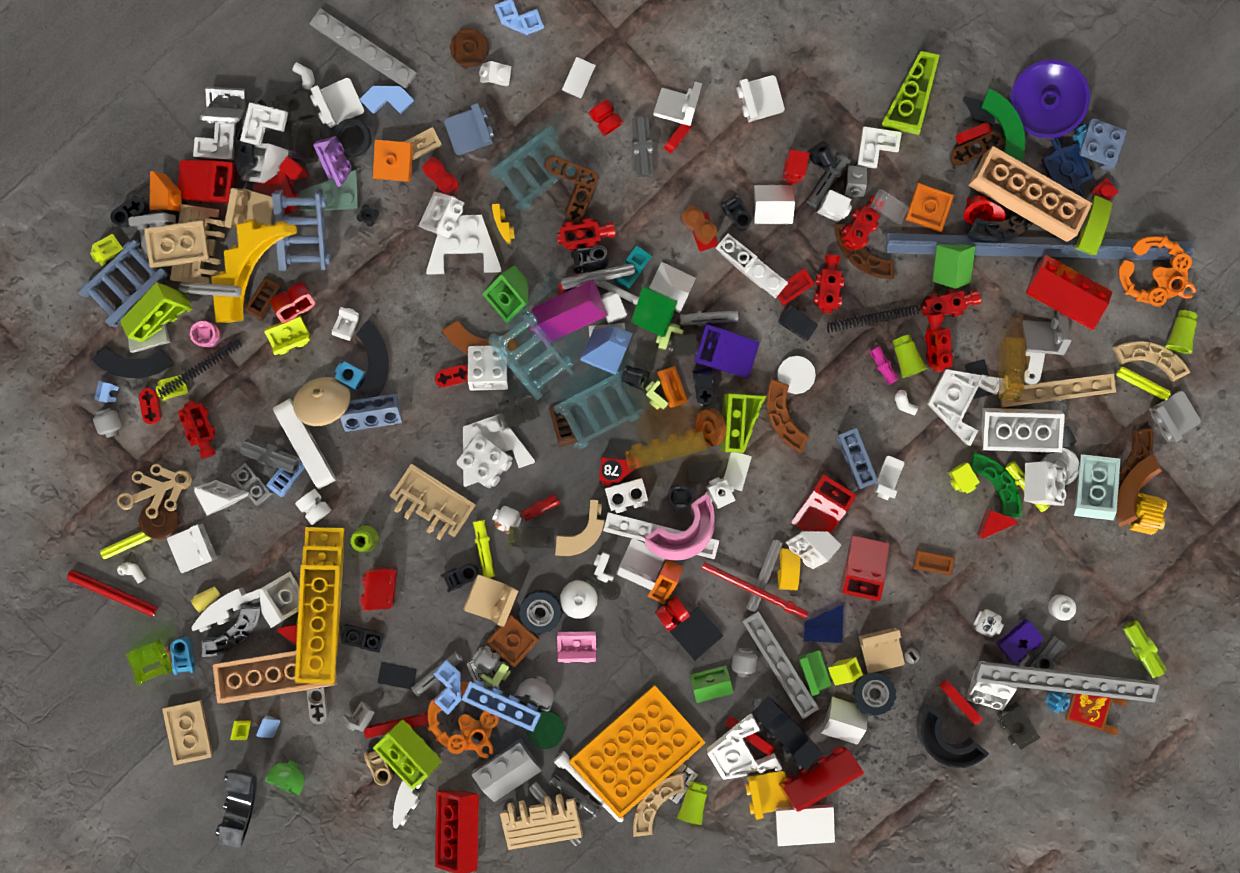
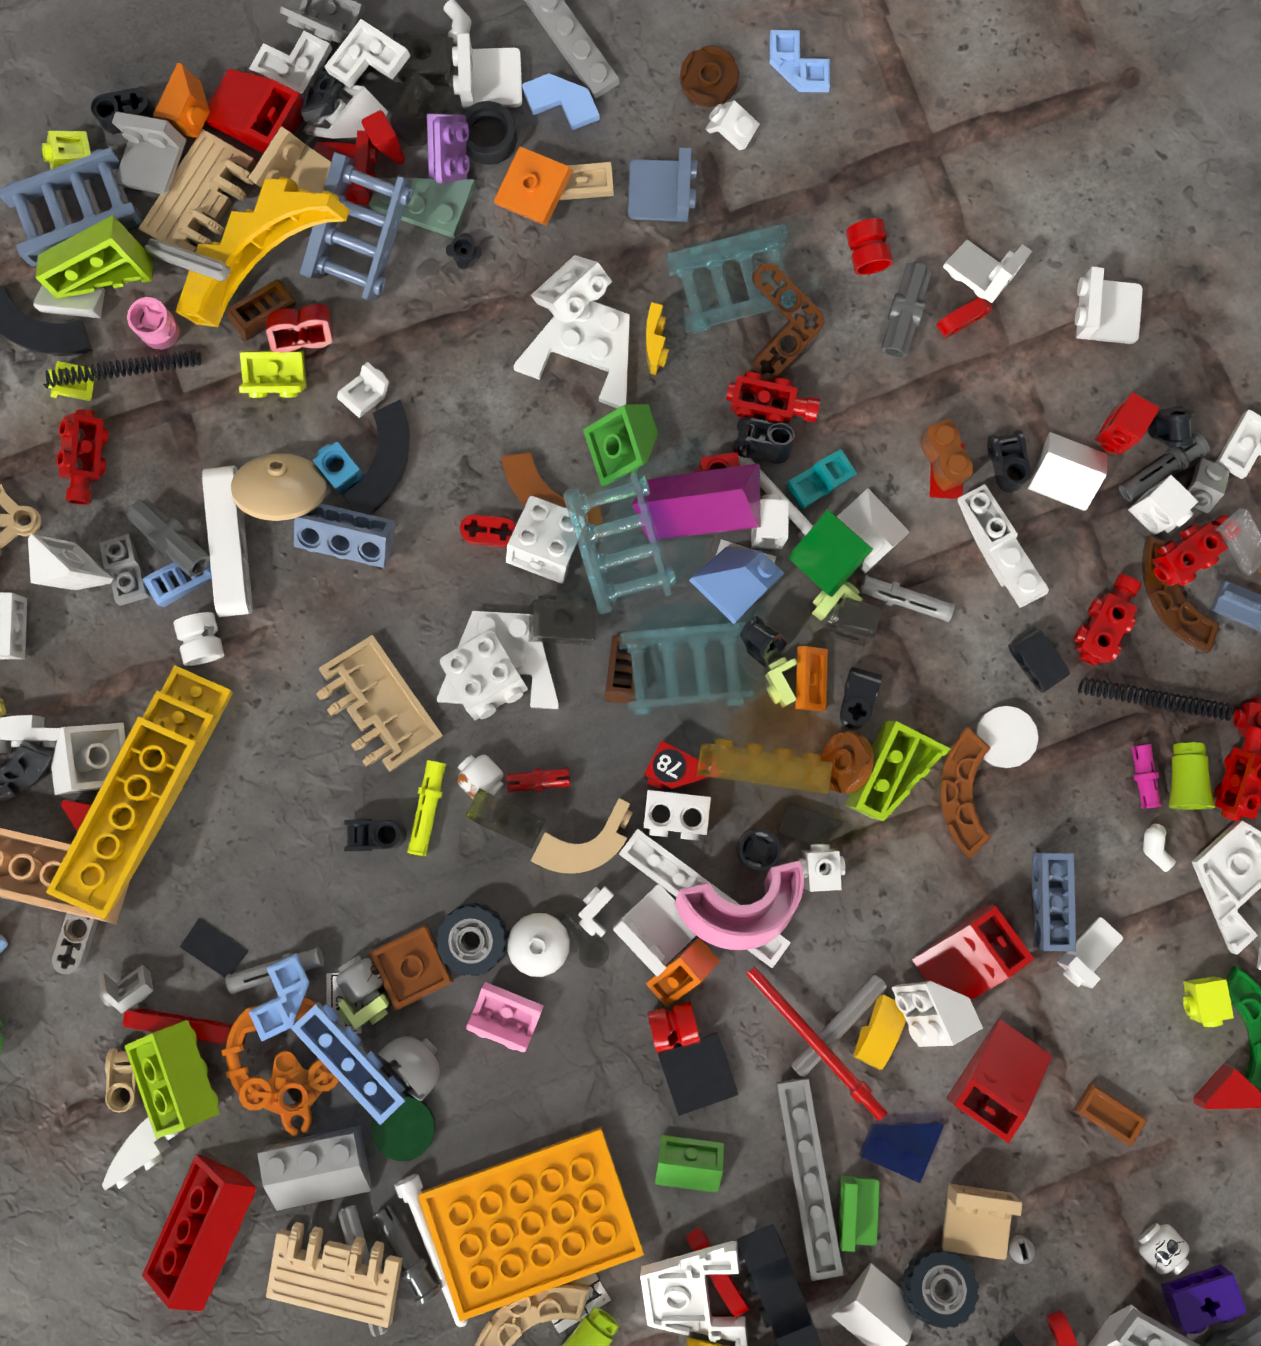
camera: 25 degrees right, 5 degrees down
(145, 407) = (27, 396): red beam -> none
(176, 244) = (168, 176): tan plate -> none
(362, 638) = (185, 868): black slope -> none
(371, 538) = (262, 723): lime plant -> none
(379, 588) = (239, 801): red slope -> none
(444, 180) = (591, 235): red brick -> none
(490, 599) = (403, 889): tan bracket -> none
(578, 77) = (850, 179): white sticker -> none
(598, 276) = (768, 468): light grey axle -> none
(726, 351) = (914, 658): dark purple slope -> none
(737, 469) = (860, 844): white sticker -> none
(744, 662) = (755, 1150): light grey head -> none
(796, 285) = (1056, 604): red plate -> none
(845, 671) = (909, 1232): neon yellow brick -> none

